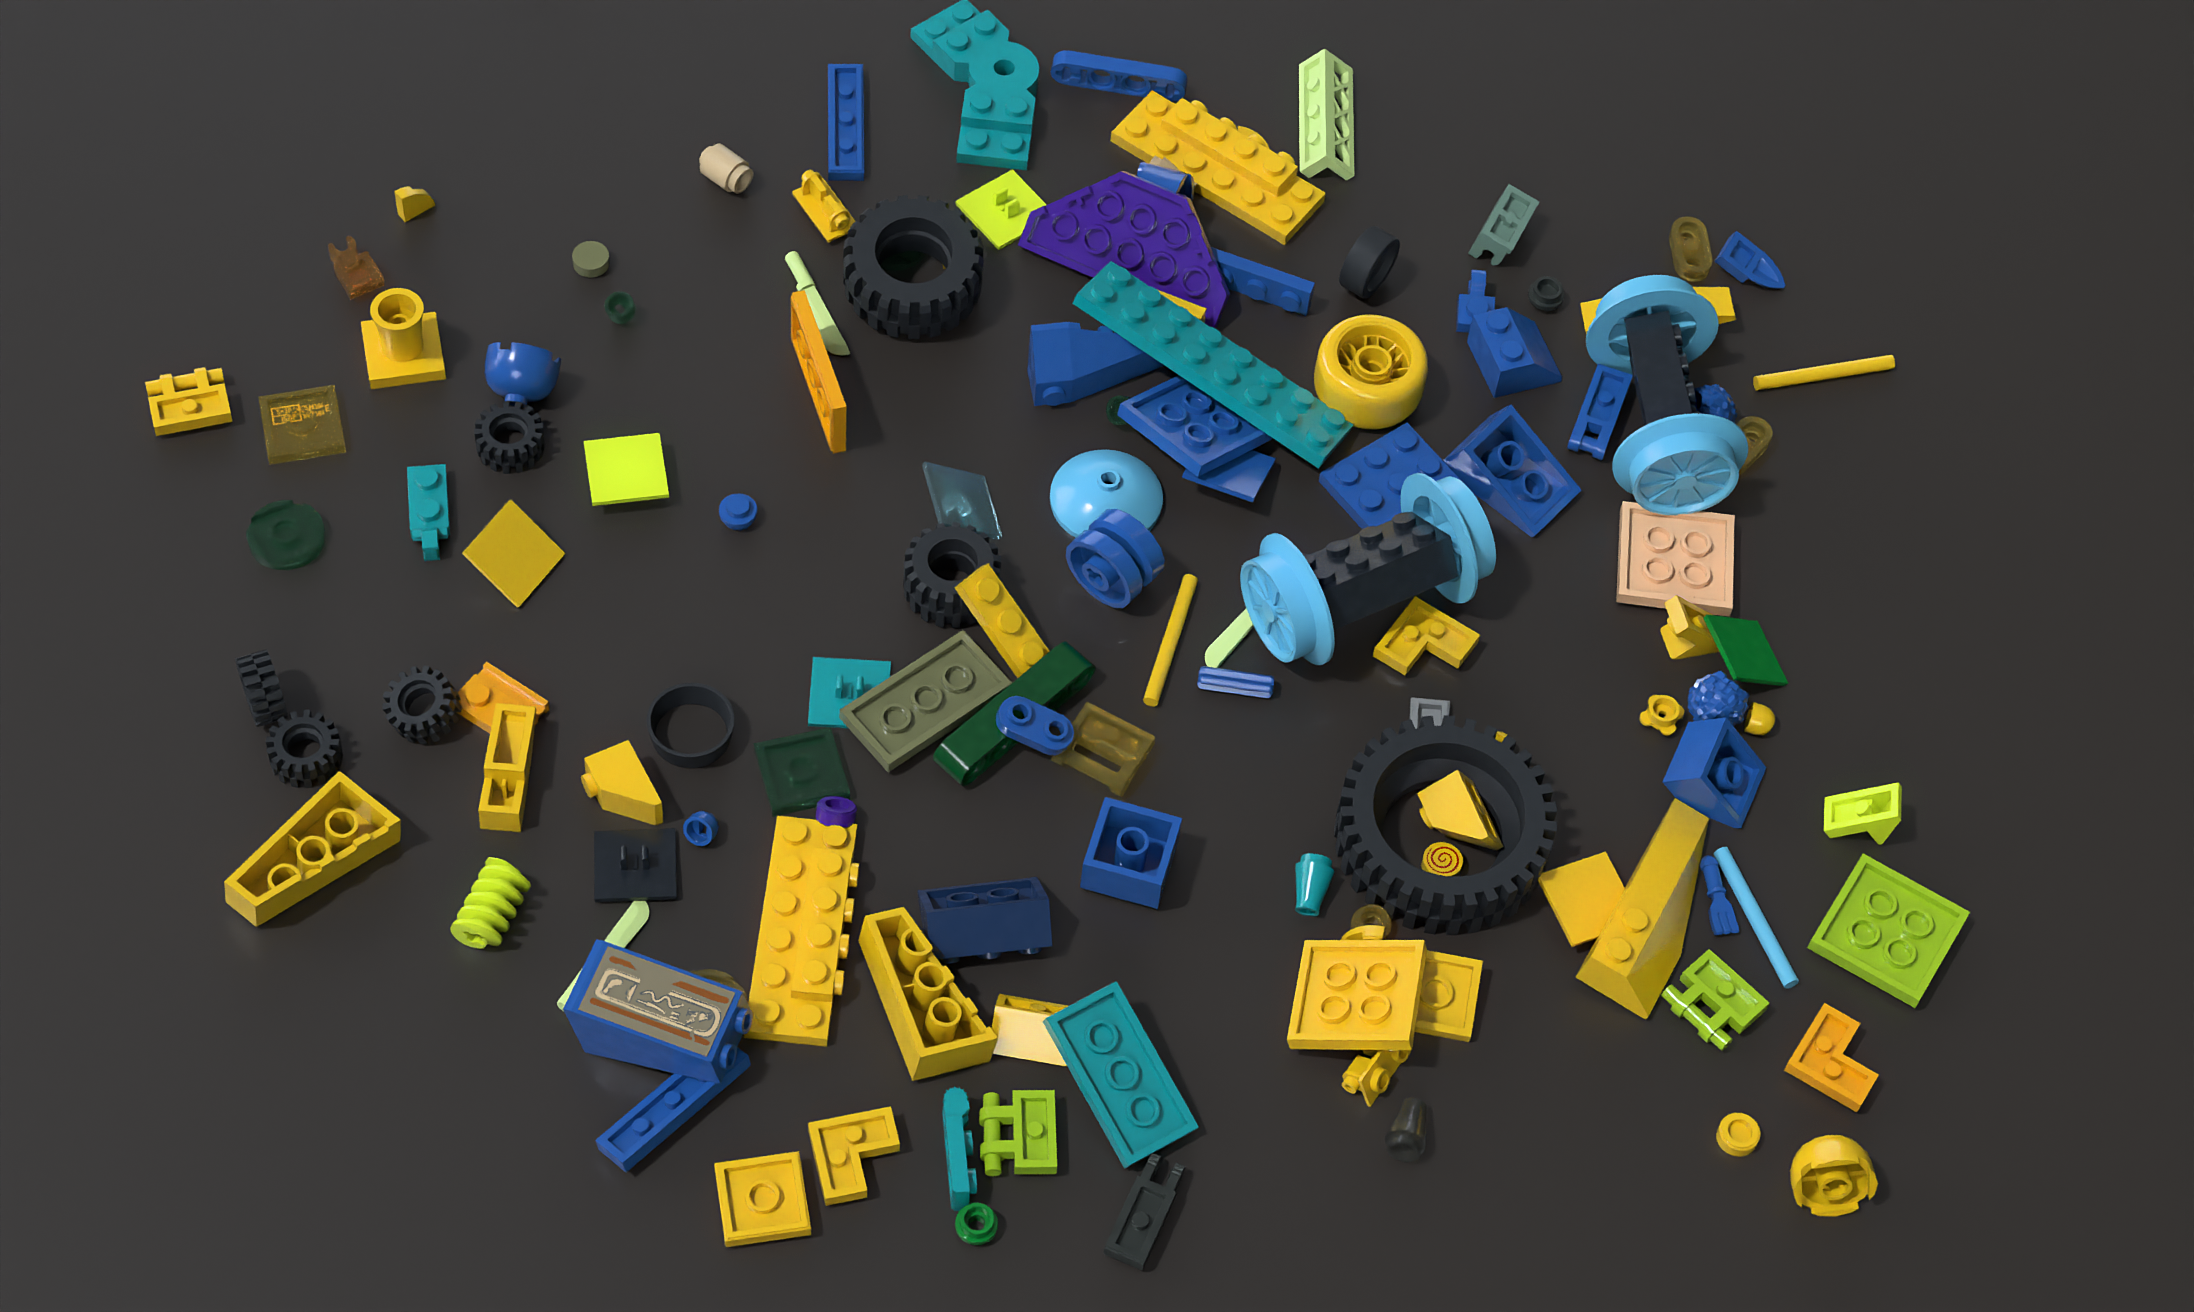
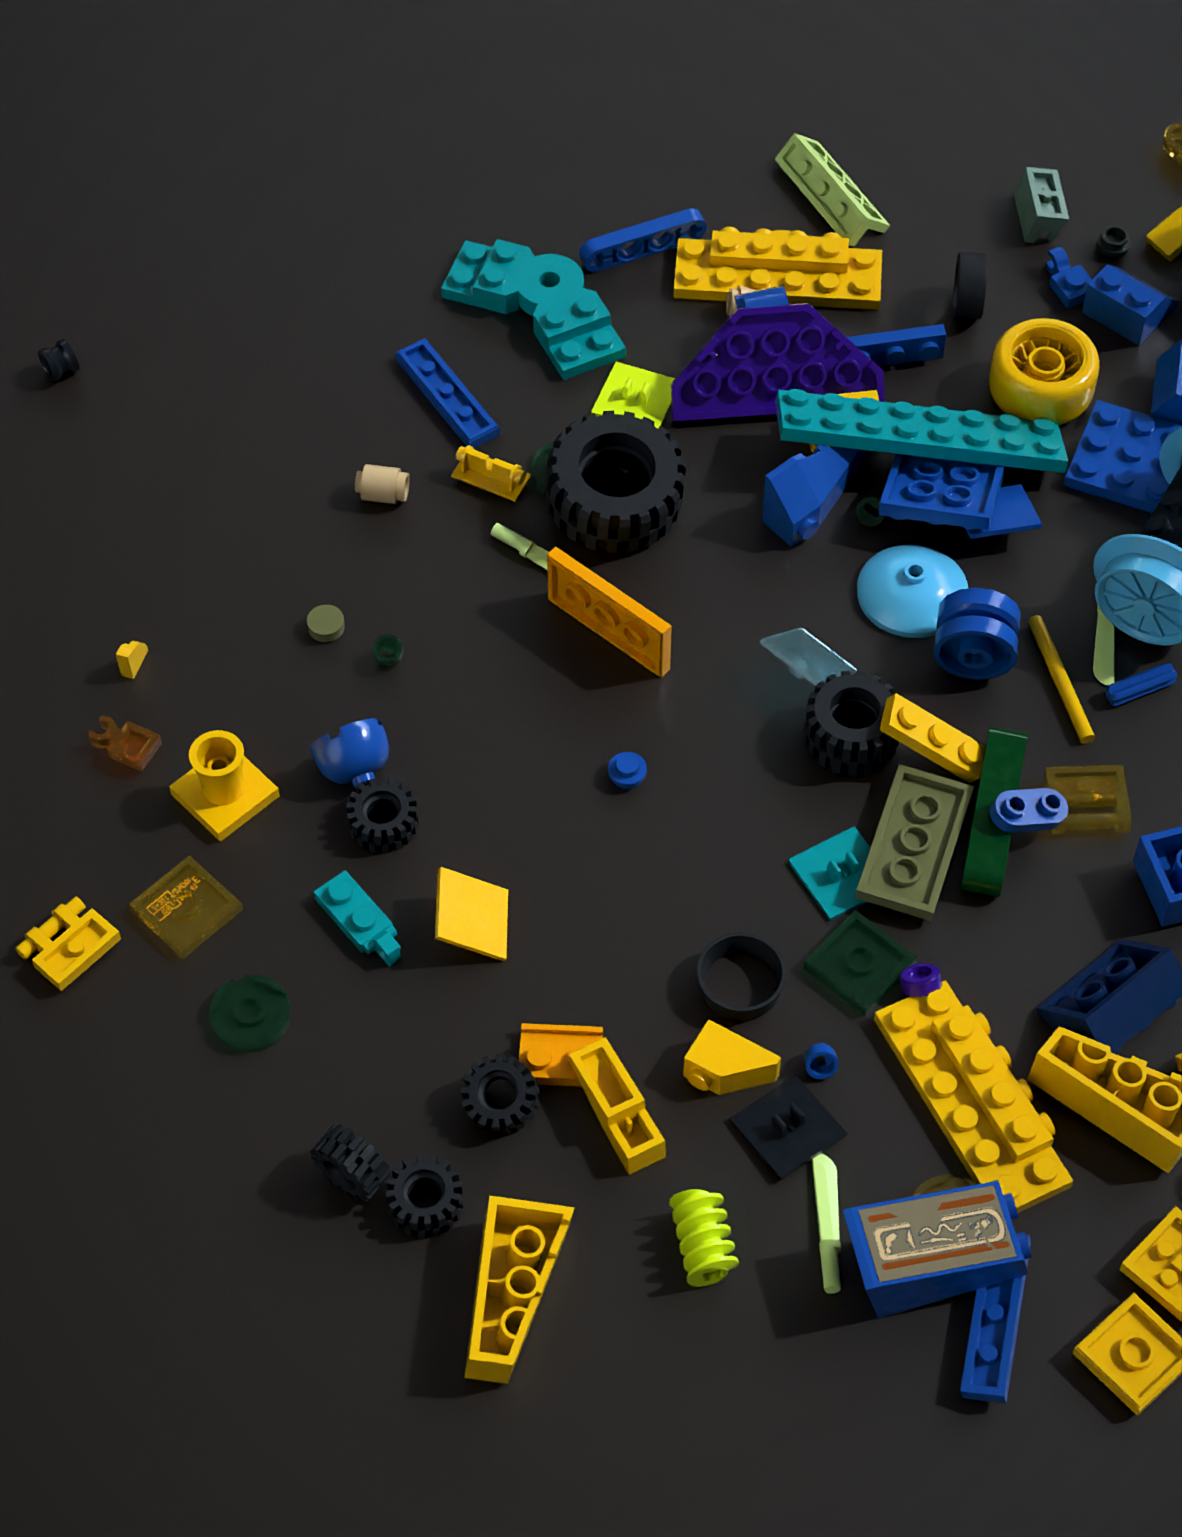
camera: 25 degrees left, 0 degrees up
(626, 469) = (508, 786): neon yellow piece -> none

